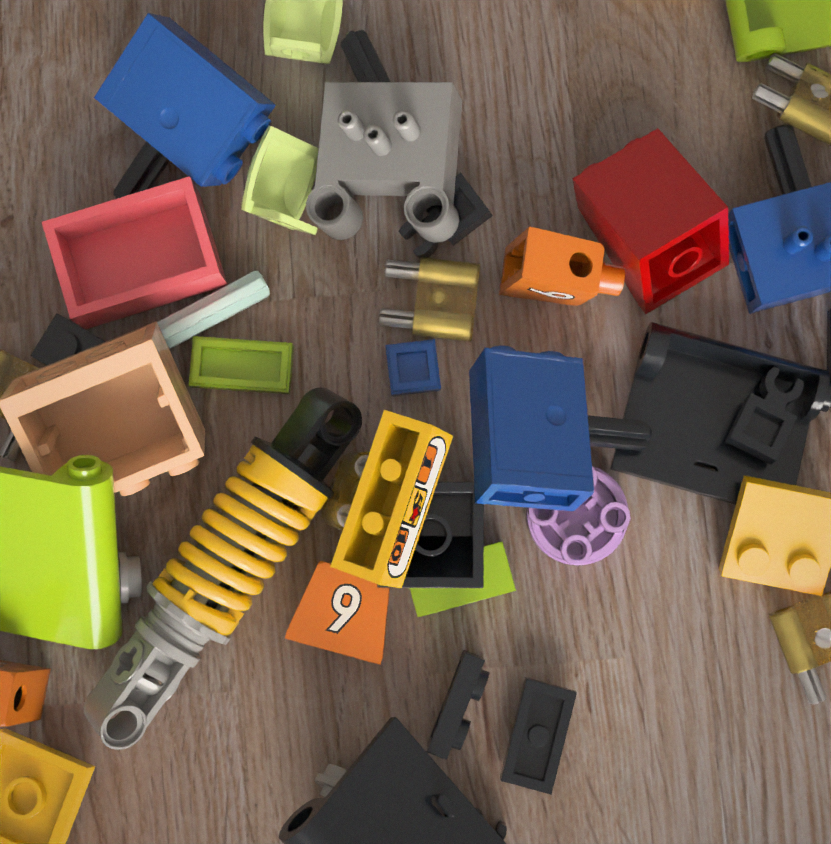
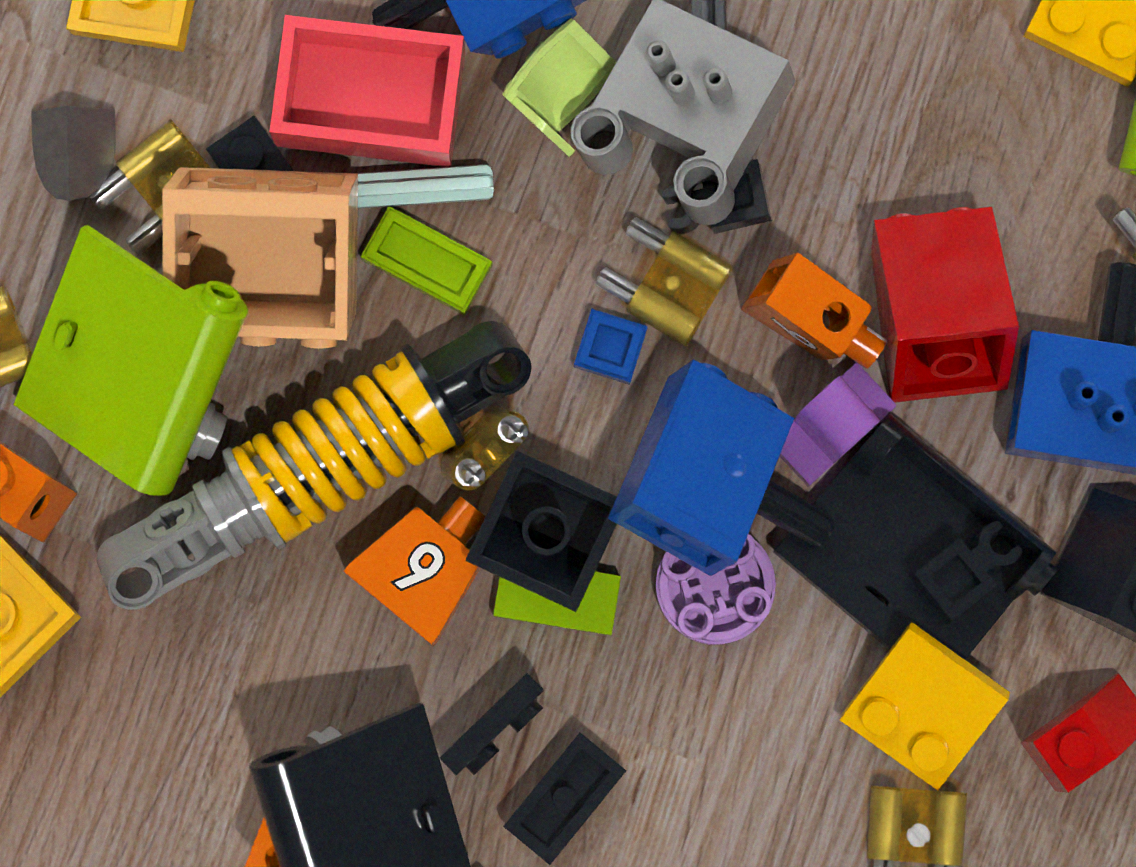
camera: 20 degrees right, 0 degrees up
(392, 500) = (522, 473): yellow brick -> none
(614, 348) = (834, 423): none -> medium lavender tile

